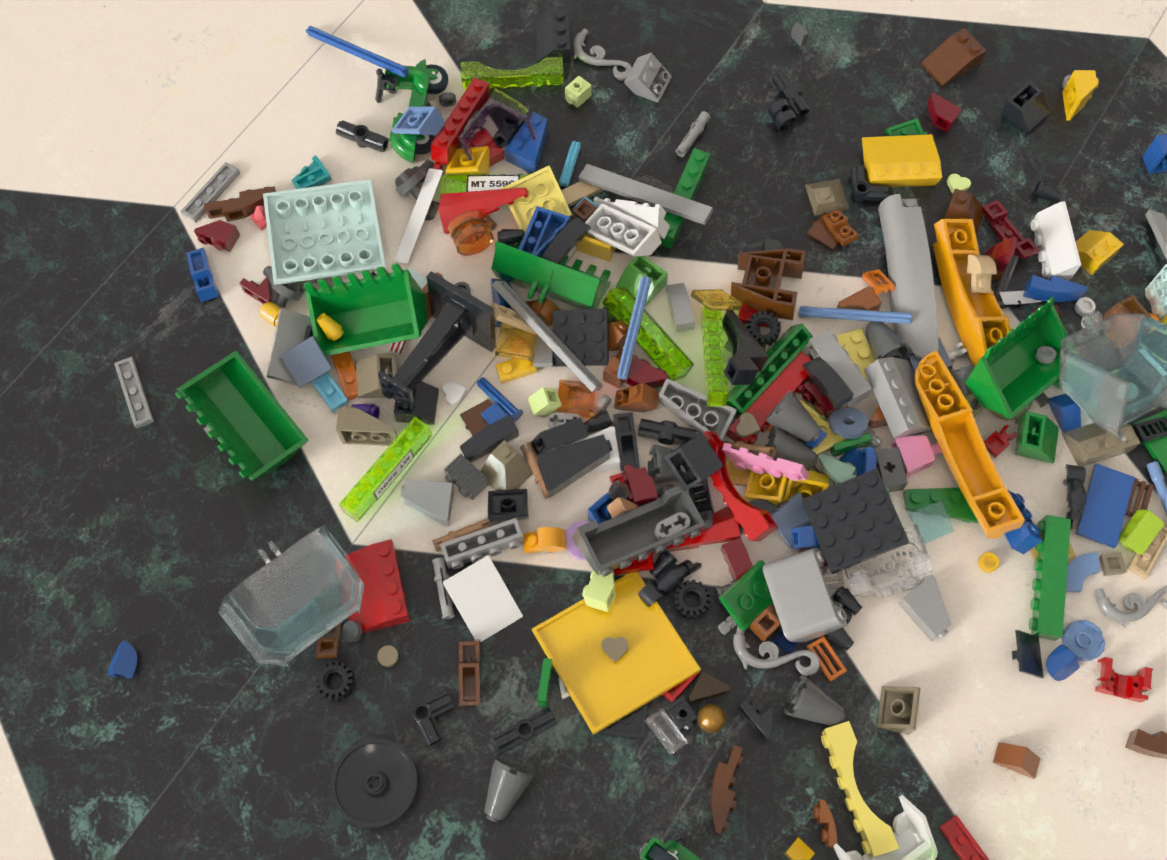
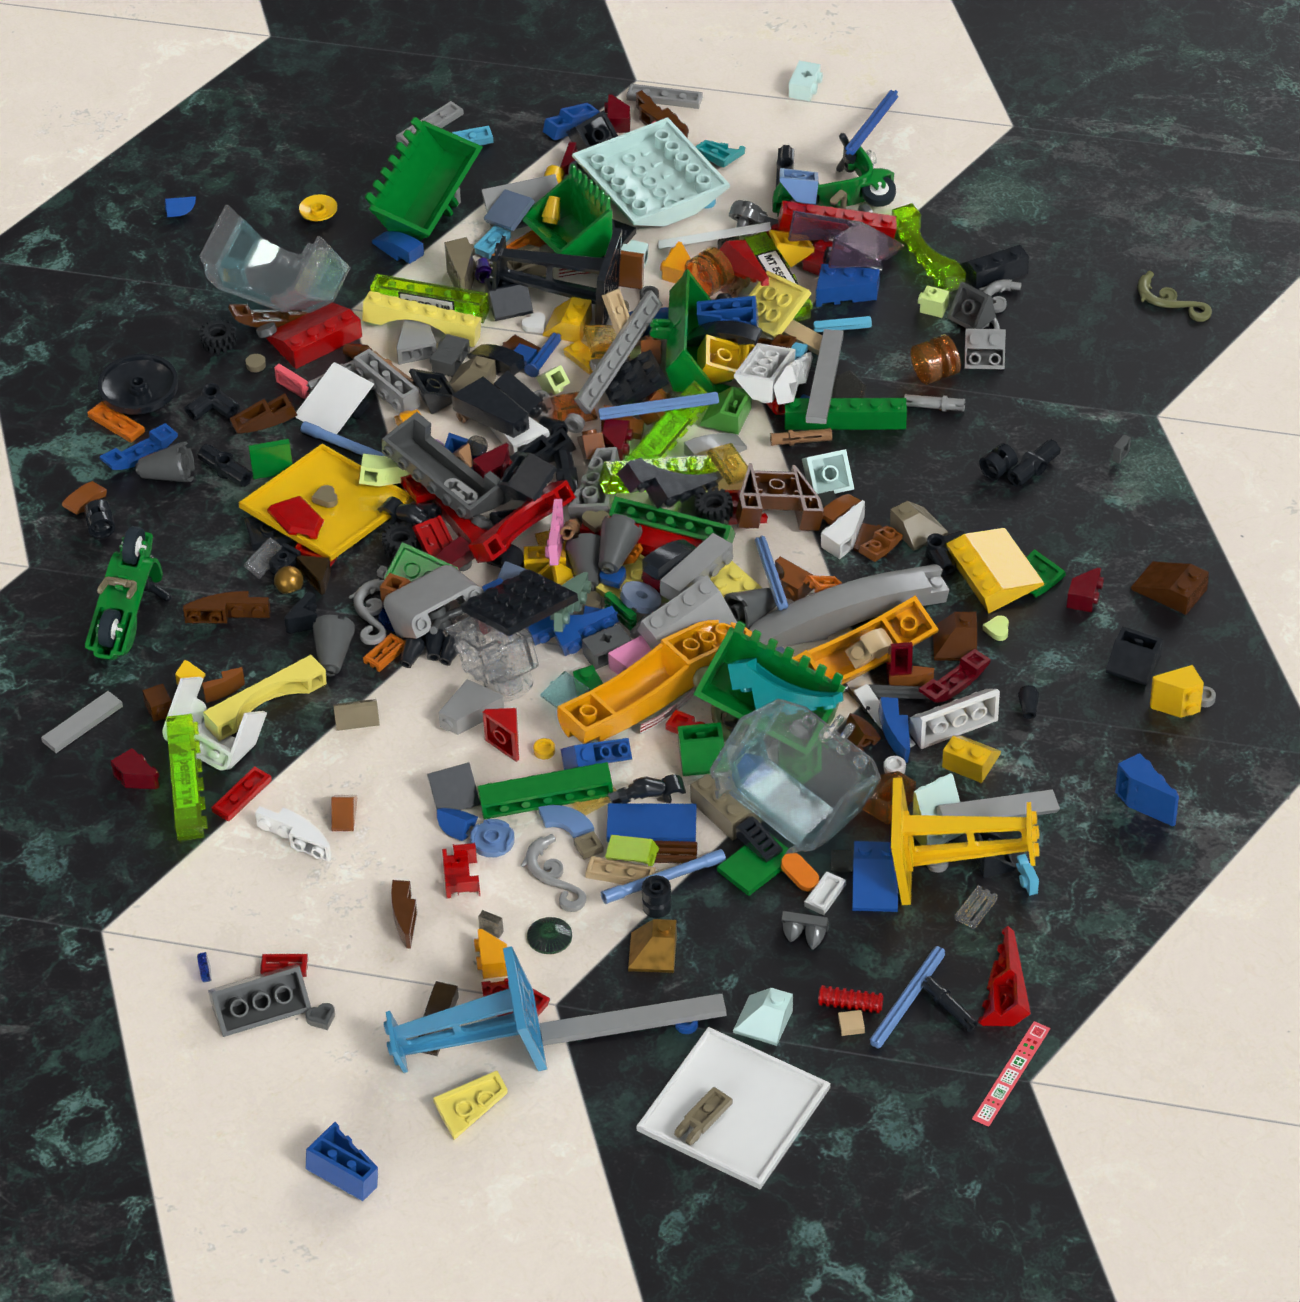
camera: 70 degrees right, 20 degrees down
(177, 361) = (478, 135): none -> medium azure plate
(195, 522) = (318, 207): none -> yellow dish
(236, 262) = (592, 131): none -> black slope
(258, 83) = (805, 80): none -> light aqua brick
(292, 473) = (399, 246): none -> blue slope
(389, 508) = (384, 308): none -> light yellow arch
(413, 819) = (116, 422): none -> orange tile
(422, 556) = (353, 350): none -> reddish brown cone
(435, 630) = (291, 381): none -> coral tile
(440, 254) = (674, 265): none -> light orange slope
(465, 809) = (159, 439): none -> blue slope
(467, 363) = (569, 319): none -> yellow slope
(512, 628) = (317, 432): none -> medium blue piece
(587, 259) = (719, 358): none -> yellow slope
(603, 69) = (971, 307): none -> dark grey slope
(639, 683) = (297, 517): none -> red tile
(655, 113) = (935, 359): none -> clear orange wheel
(690, 245) = (800, 436): none -> medium nougat pin
(709, 568) = (433, 535): none -> red plate
(745, 234) = (828, 472): none -> light aqua slope
(789, 237) = (839, 507): none -> dark orange slope
(820, 248) = (842, 534): none -> white slope
(977, 585) = (502, 730): none -> red slope
(1035, 352) = (766, 687): none -> teal arch
(1045, 809) = (302, 834): none -> white slope

